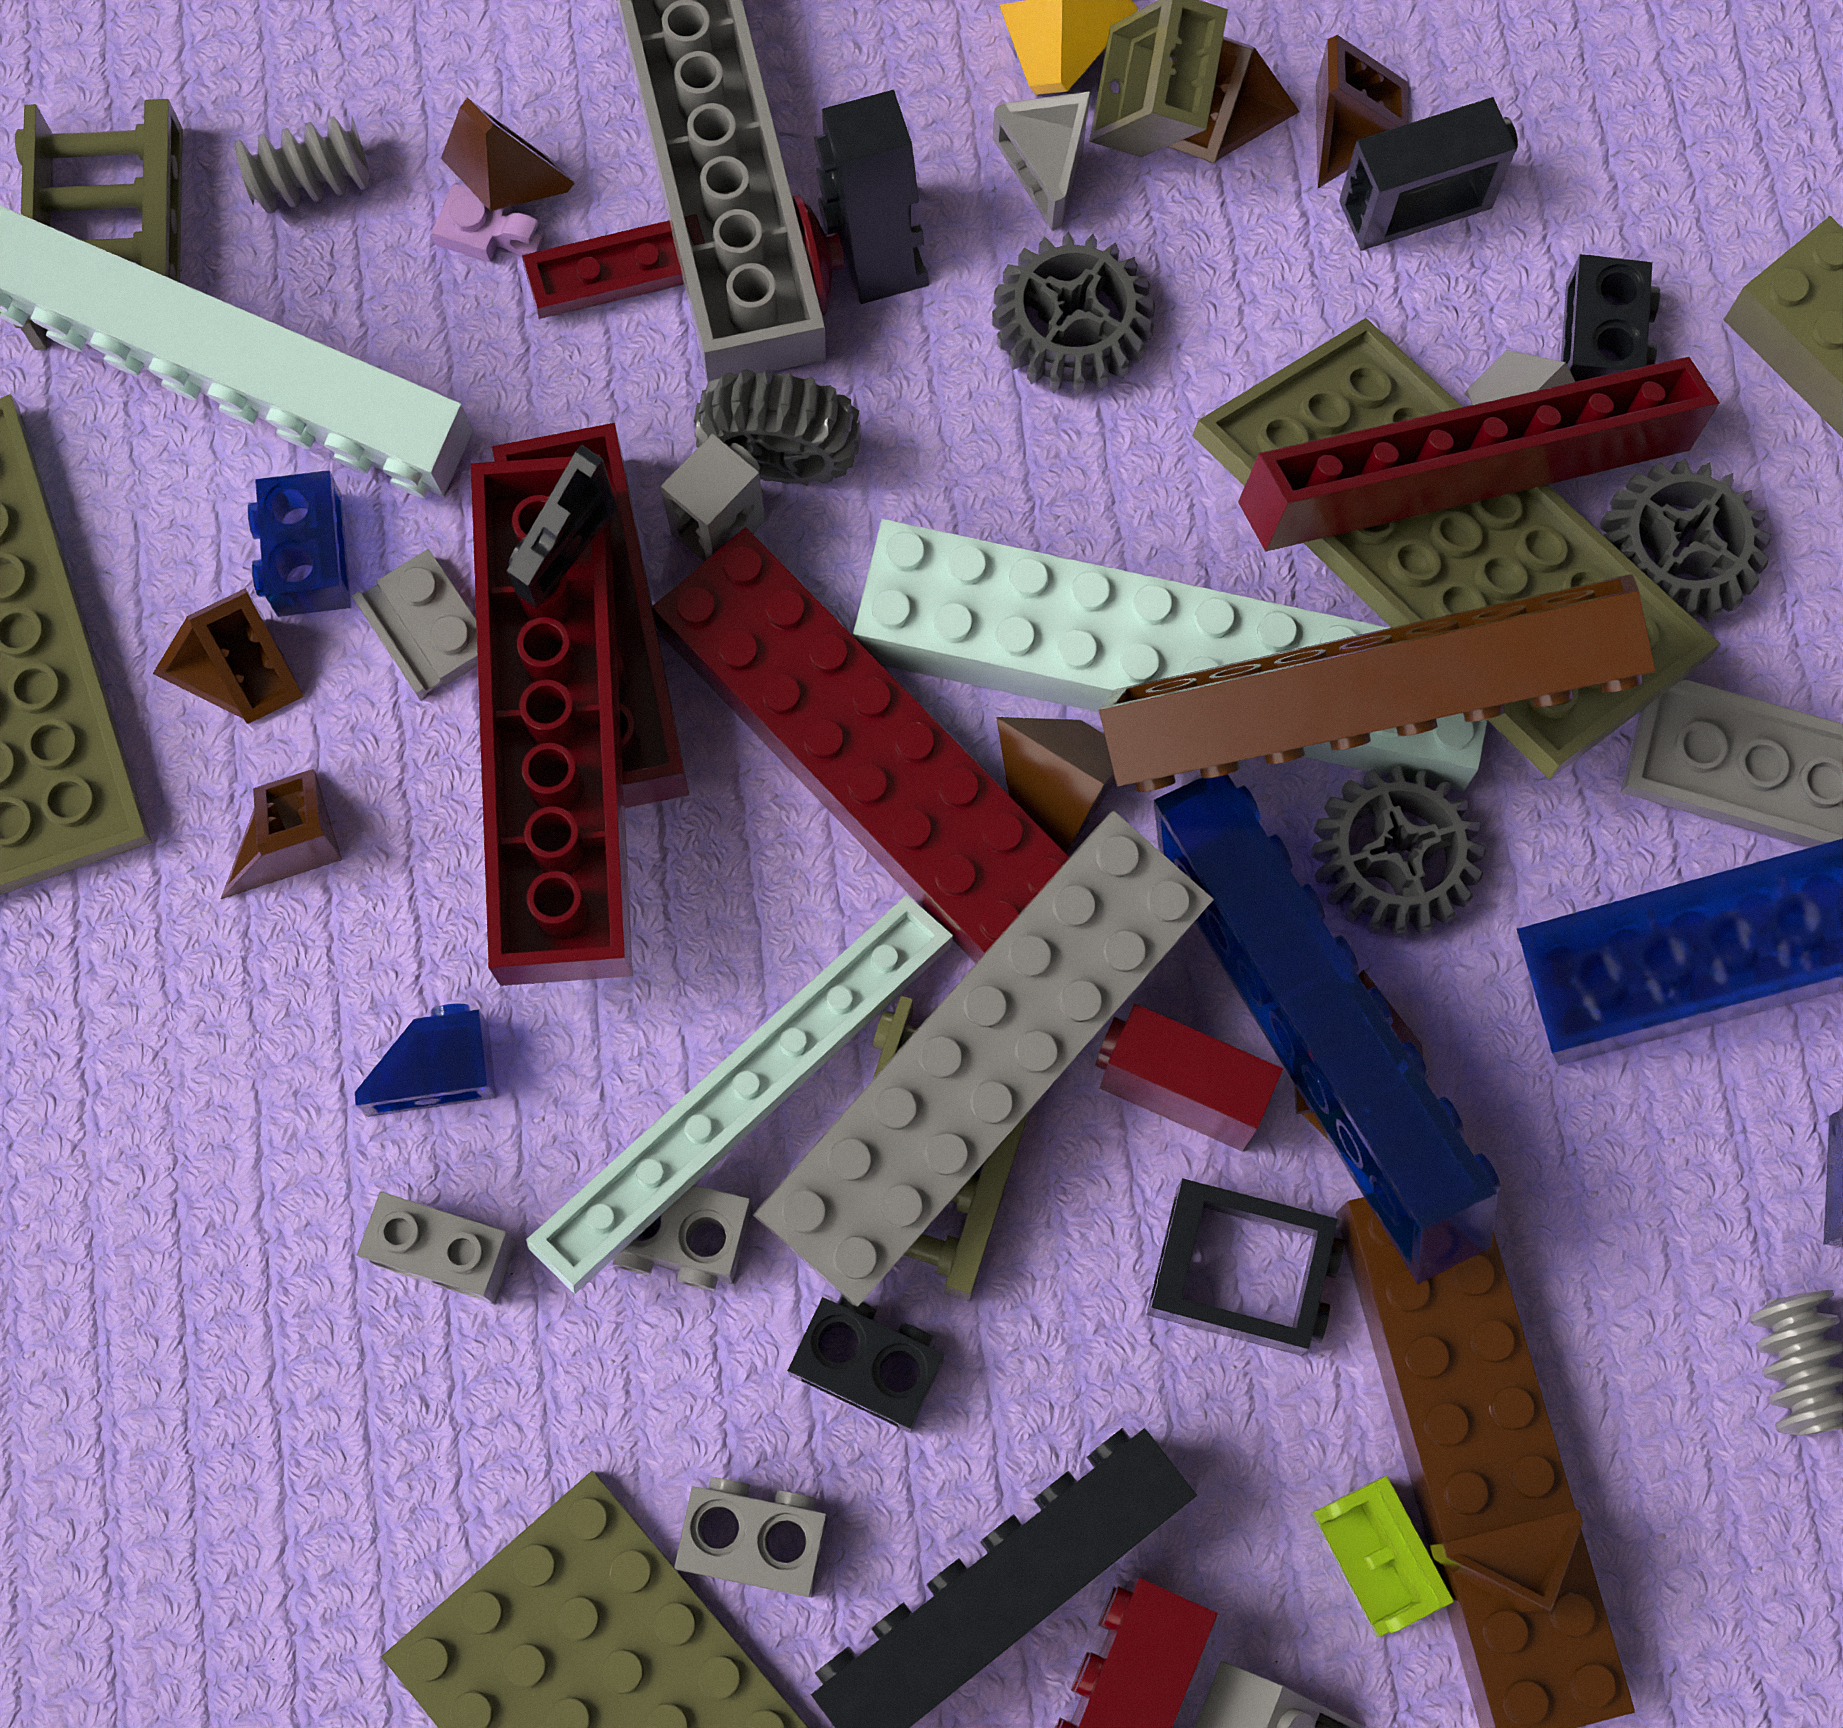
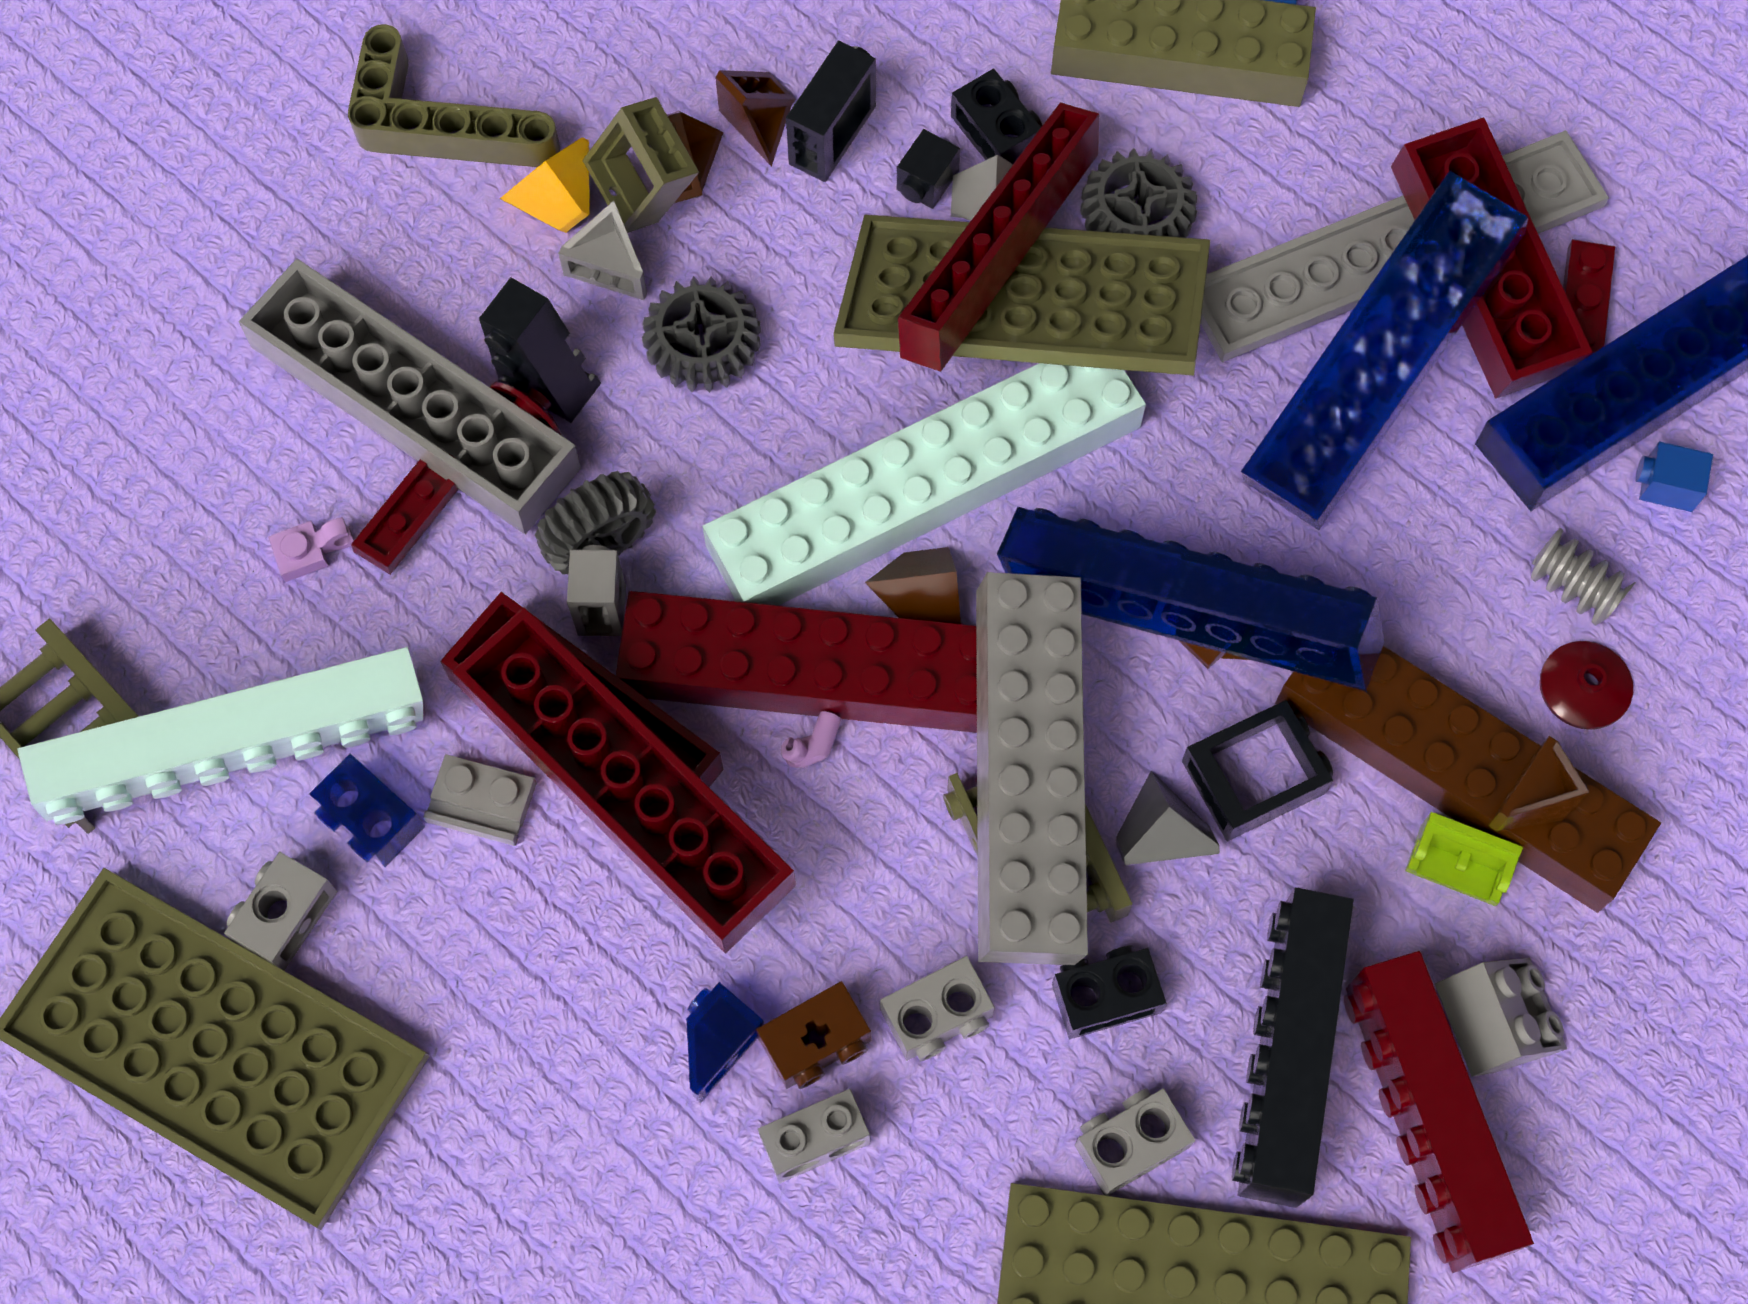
camera: 40 degrees left, 5 degrees down
(167, 587) = (281, 937): none -> light grey brick
(230, 659) = (384, 912): reddish brown slope -> none
(284, 834) = (505, 985): reddish brown slope -> none
(303, 165) = (166, 594): light grey piece -> none
(499, 162) = (287, 502): reddish brown slope -> none
(502, 1123) = (827, 1012): none -> reddish brown brick
(564, 527) = (547, 651): black wing -> none
(738, 1095) = (909, 906): light aqua plate -> none
(802, 849) = (813, 748): none -> lavender arm
(1086, 1243) = (1163, 828): none -> dark grey slope
(1186, 1076) = (1143, 690): dark red brick -> none
(1379, 682) = (1068, 390): reddish brown brick -> none
(1410, 900) = (1112, 463): dark grey gear -> none
(1480, 320) = (927, 169): none -> black brick
(1676, 1495) = (1573, 698): none -> dark red dish

